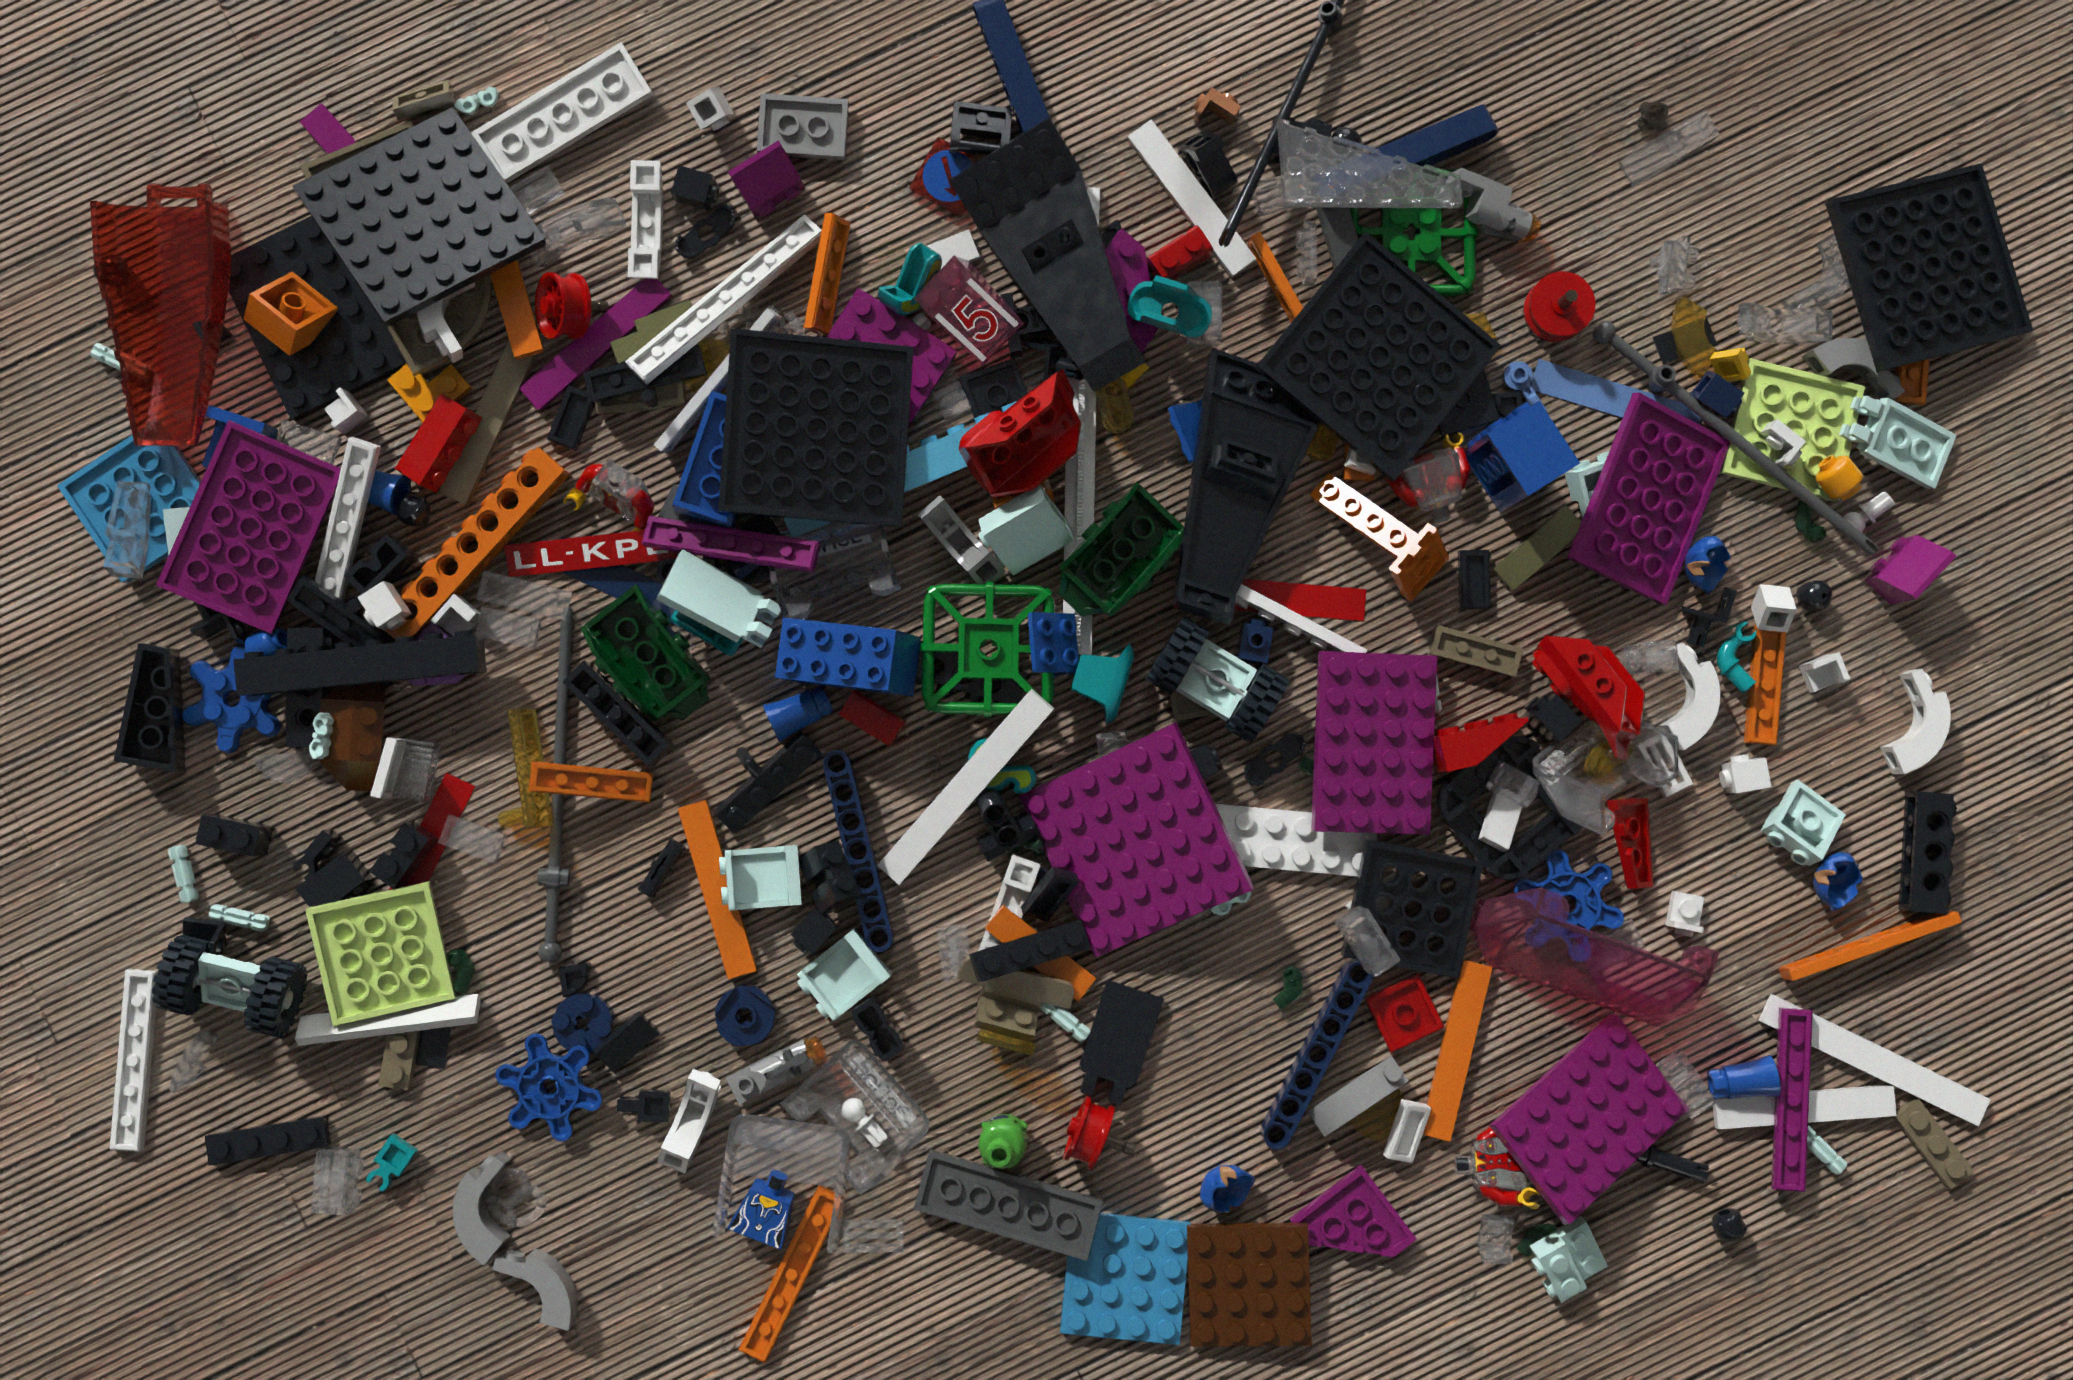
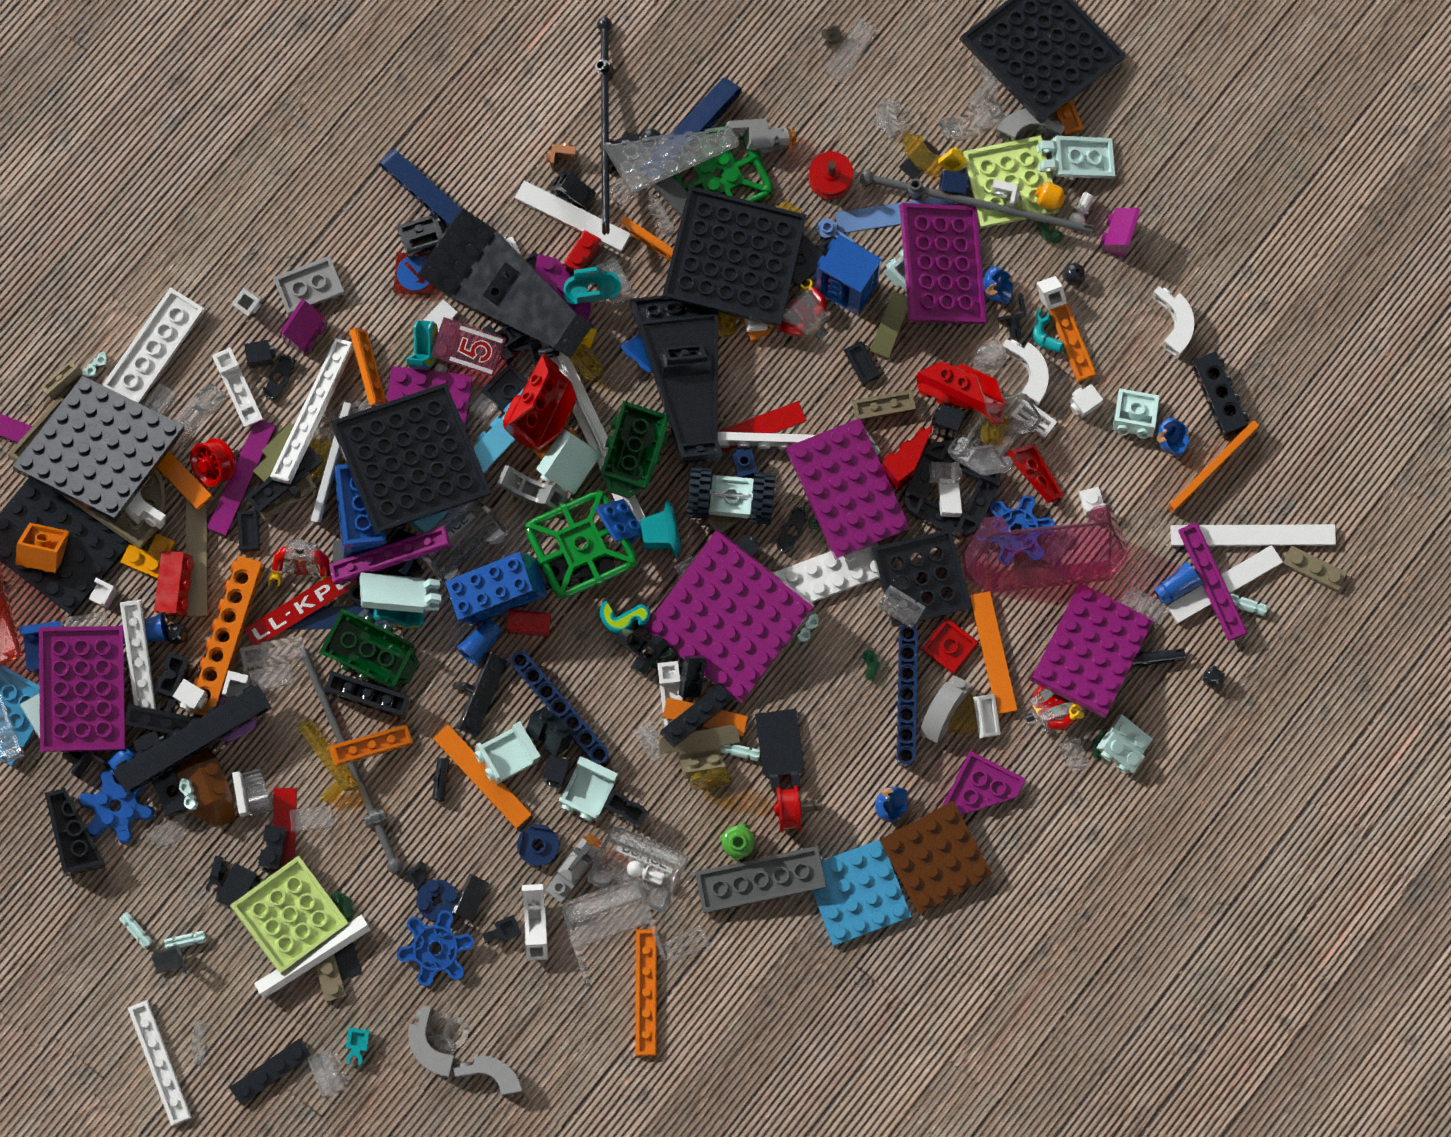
camera: 25 degrees left, 10 degrees down
(234, 835) = (158, 888): black brick -> none
(264, 993) = (203, 978): black plate -> none
(765, 1211) = (610, 957): blue torso -> none
(965, 786) = (607, 635): white tile -> none
(1416, 554) = (817, 362): bracket -> none
(1824, 671) = (1102, 316): white panel -> none

